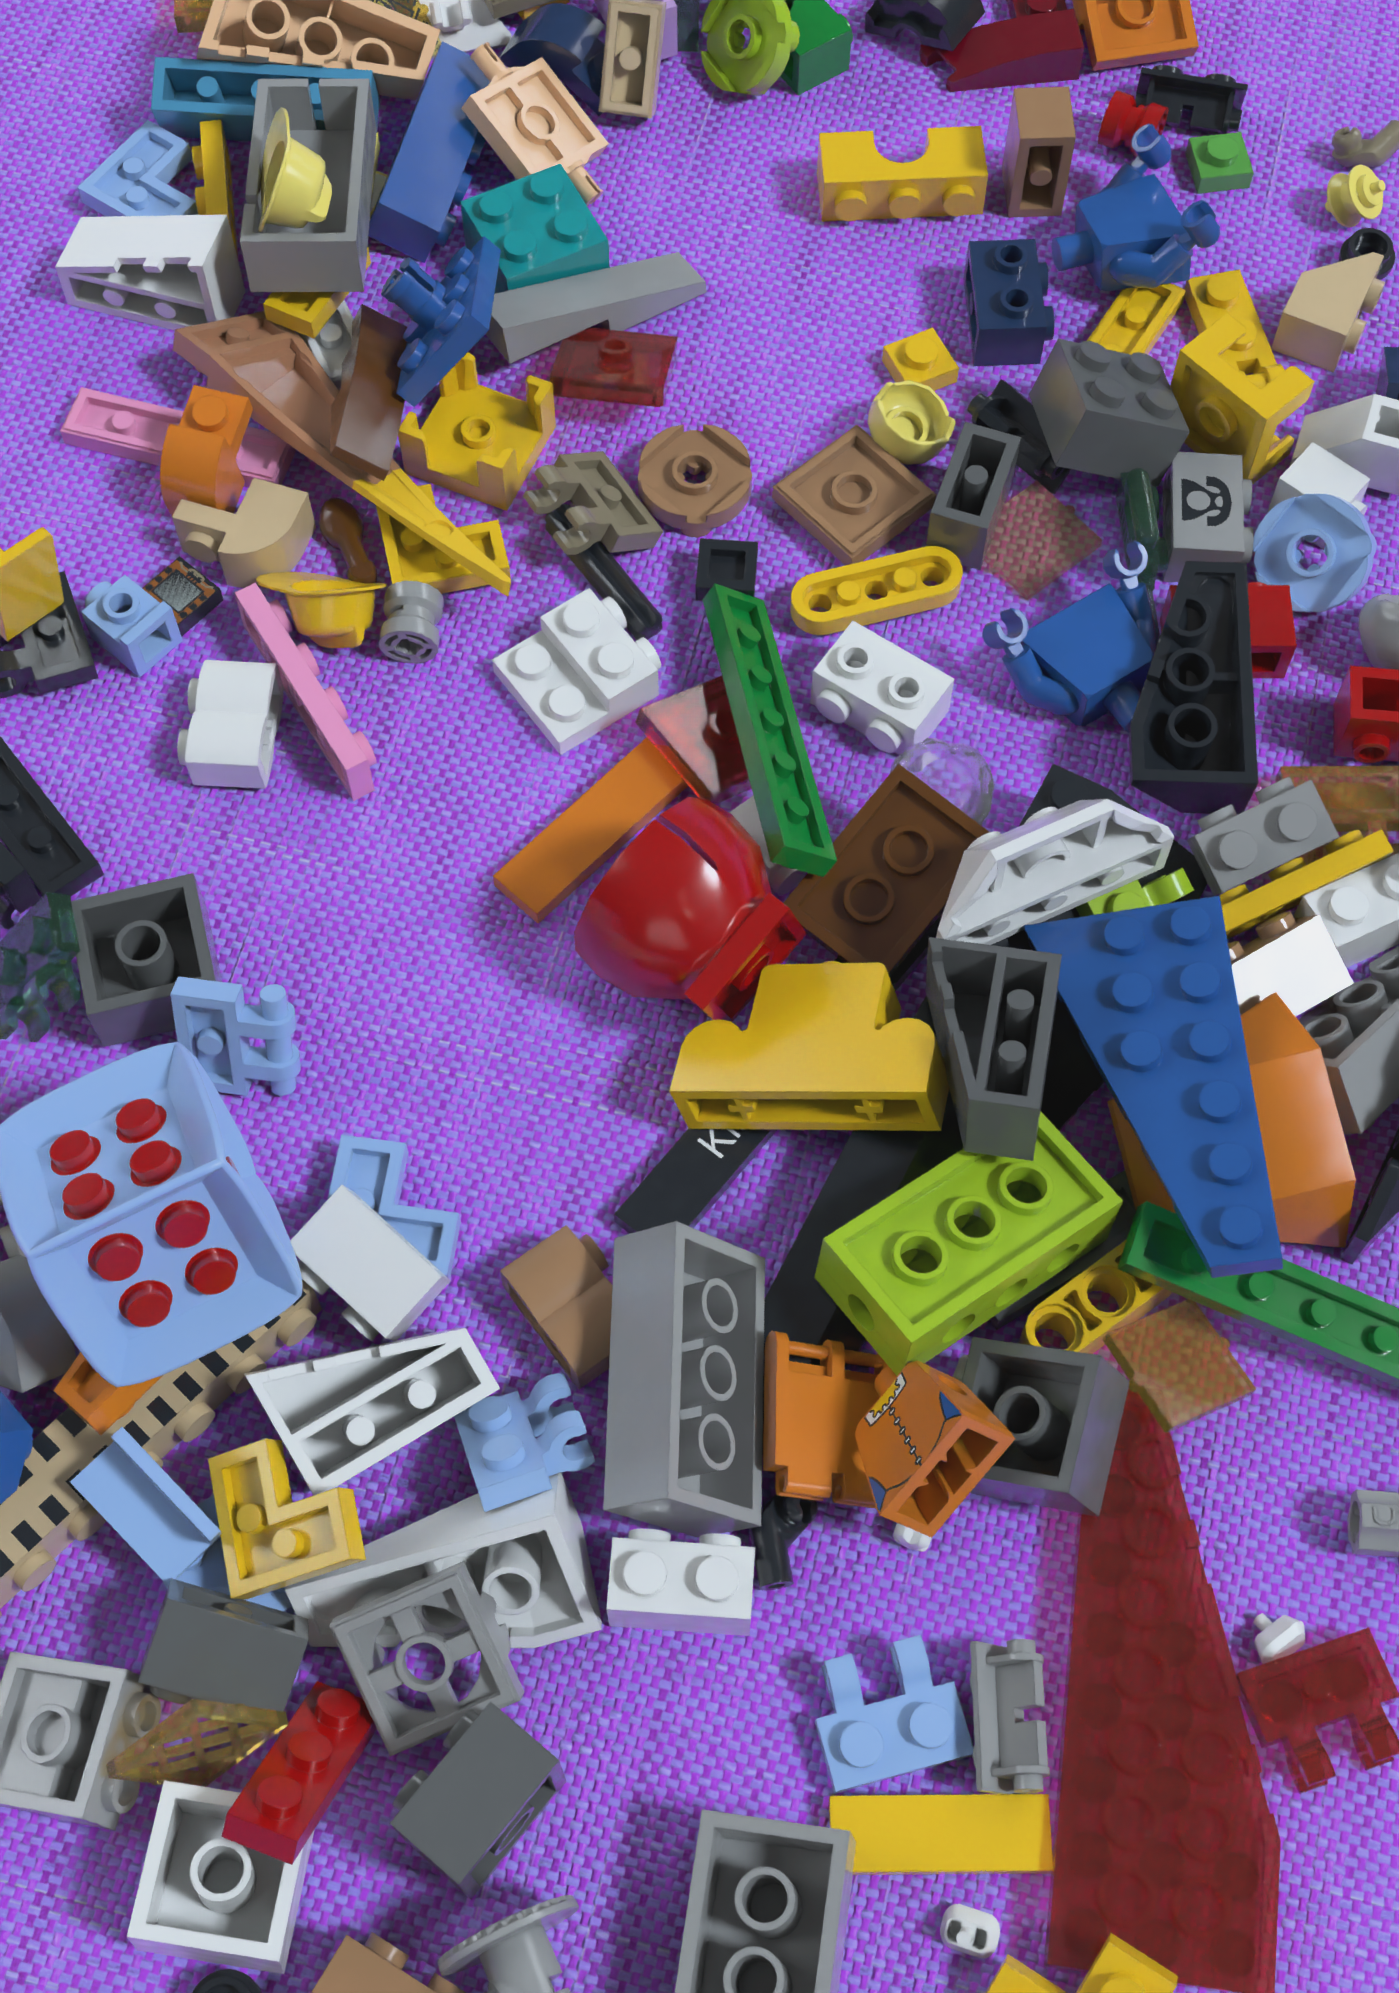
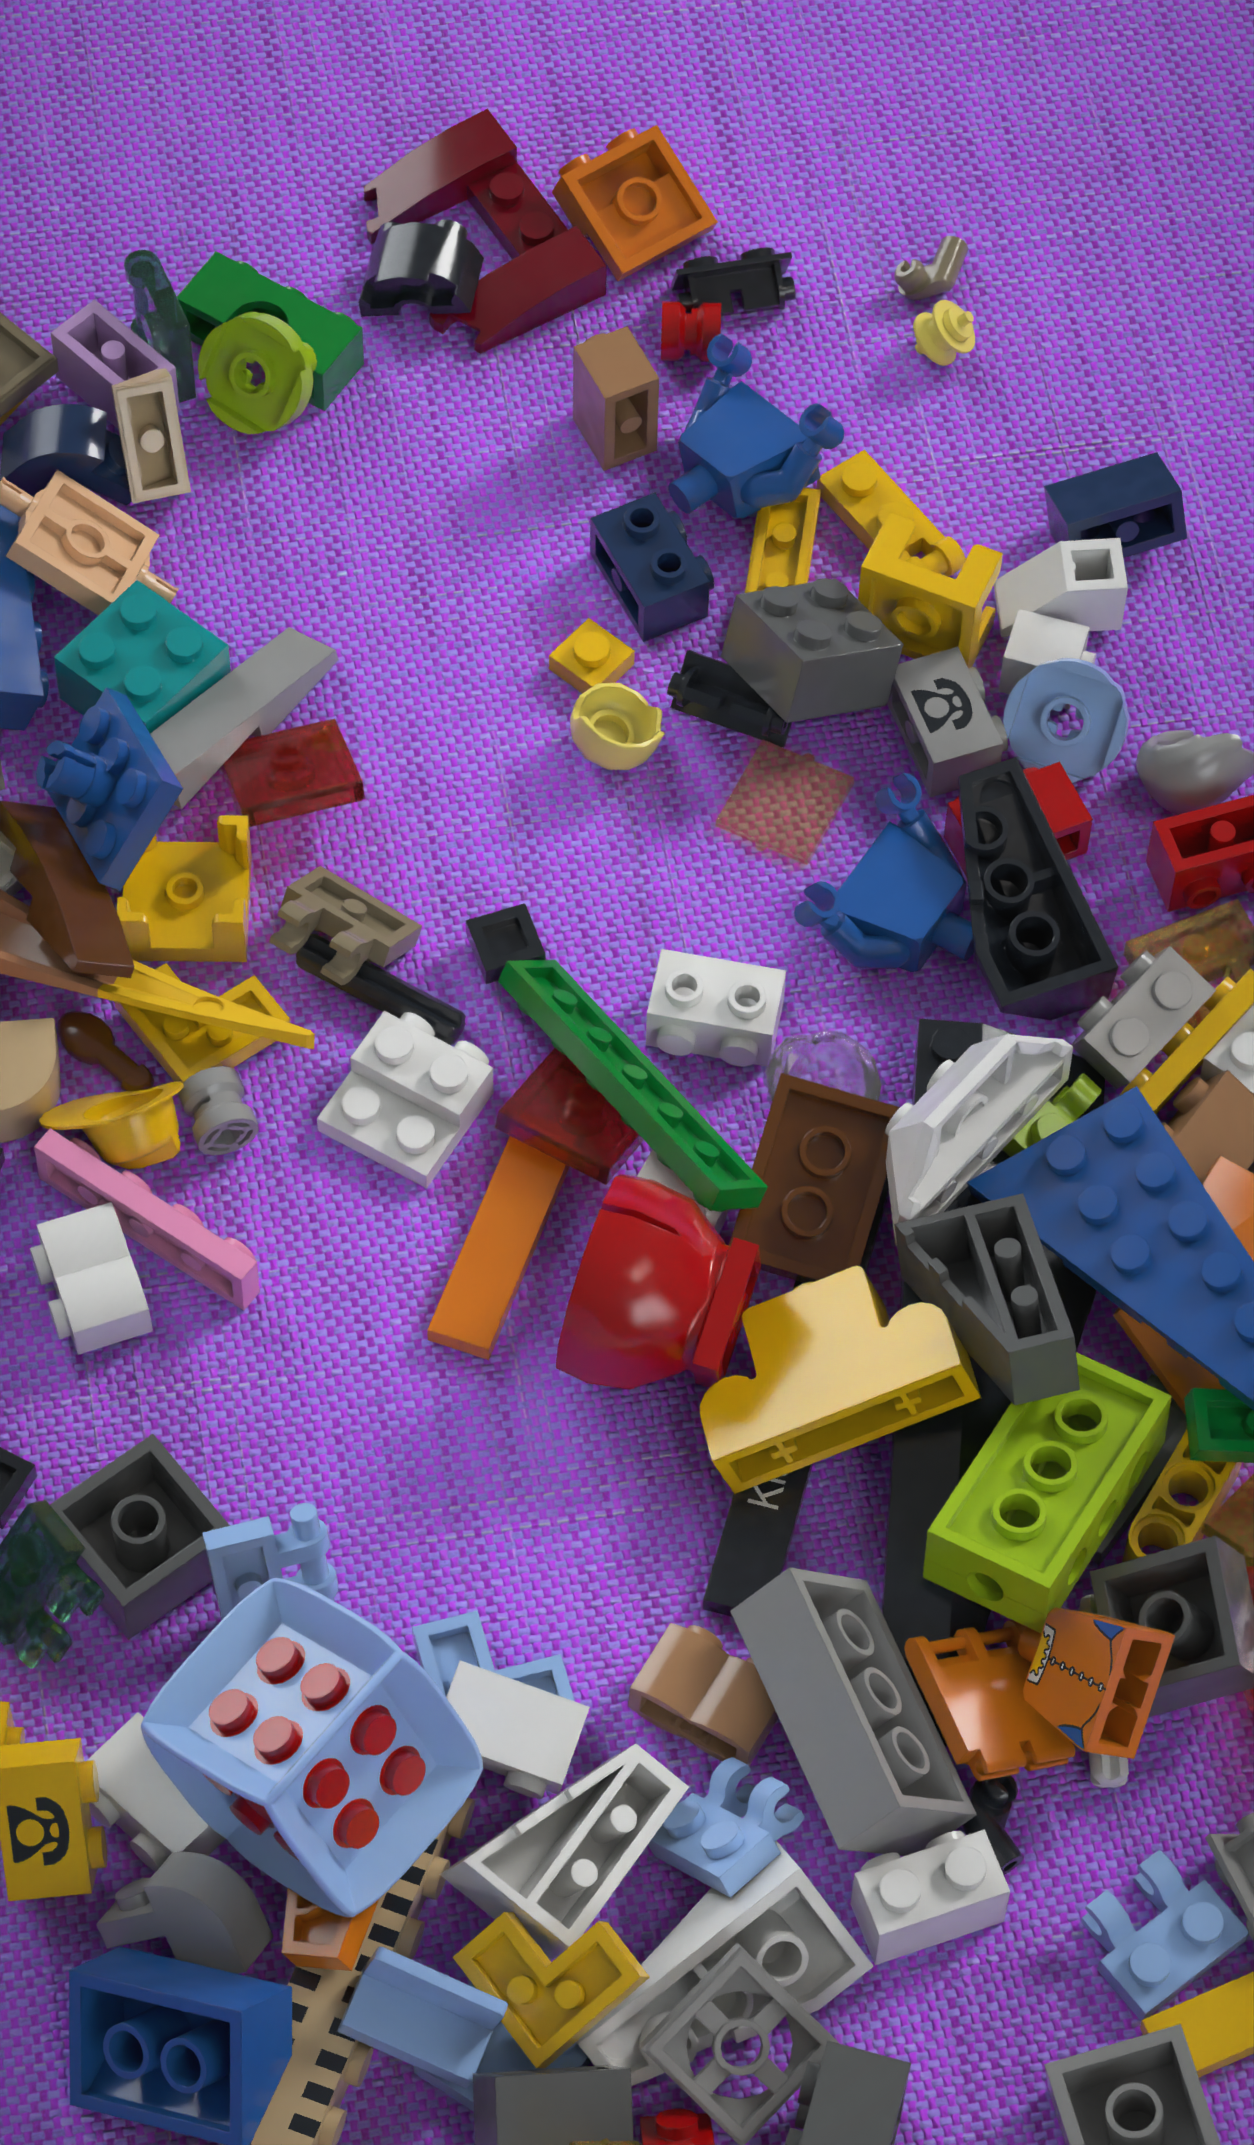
camera: 25 degrees left, 5 degrees down
(690, 505) = (433, 890): medium nougat plate -> none
(853, 496) = (593, 822): medium nougat plate -> none
(864, 185) = (441, 490): yellow arch -> none
(893, 576) = (669, 890): yellow plate -> none
(973, 493) = (715, 780): dark grey brick -> none
(1138, 520) = (889, 752): piece -> none
(1219, 162) = (791, 340): bright green plate -> none
(1326, 309) = (969, 465): tan slope -> none
(1369, 241) = (982, 378): black plate -> none

